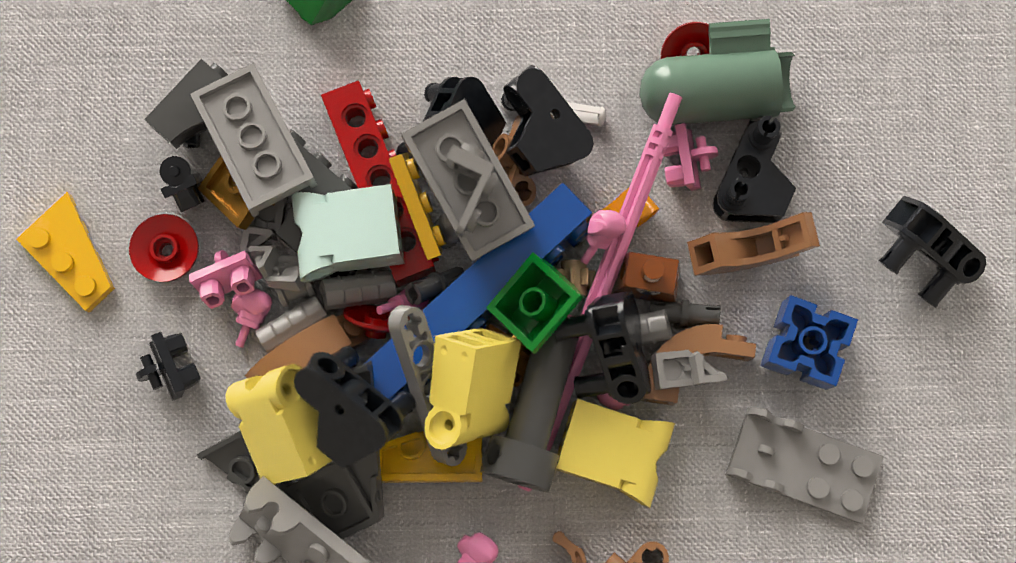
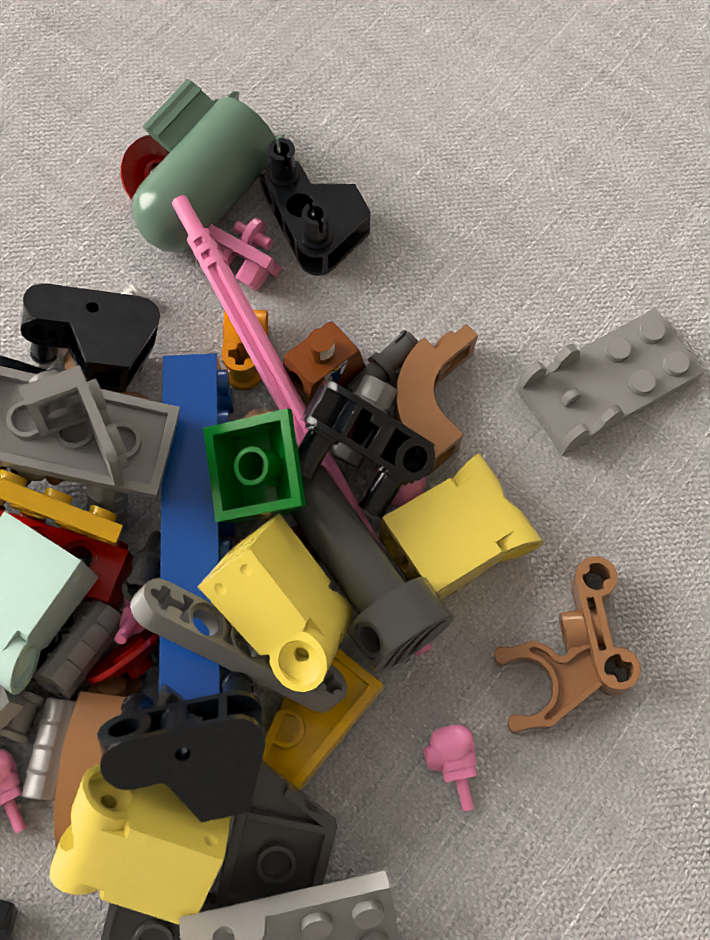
camera: 50 degrees left, 10 degrees down
(602, 229) = (241, 359): bright pink piece -> none
(683, 369) = (437, 401): light grey slope -> none
(753, 247) = (366, 278): medium nougat arch -> none
(827, 334) = (503, 283): blue brick -> none
(937, 239) = (498, 111): black piece -> none

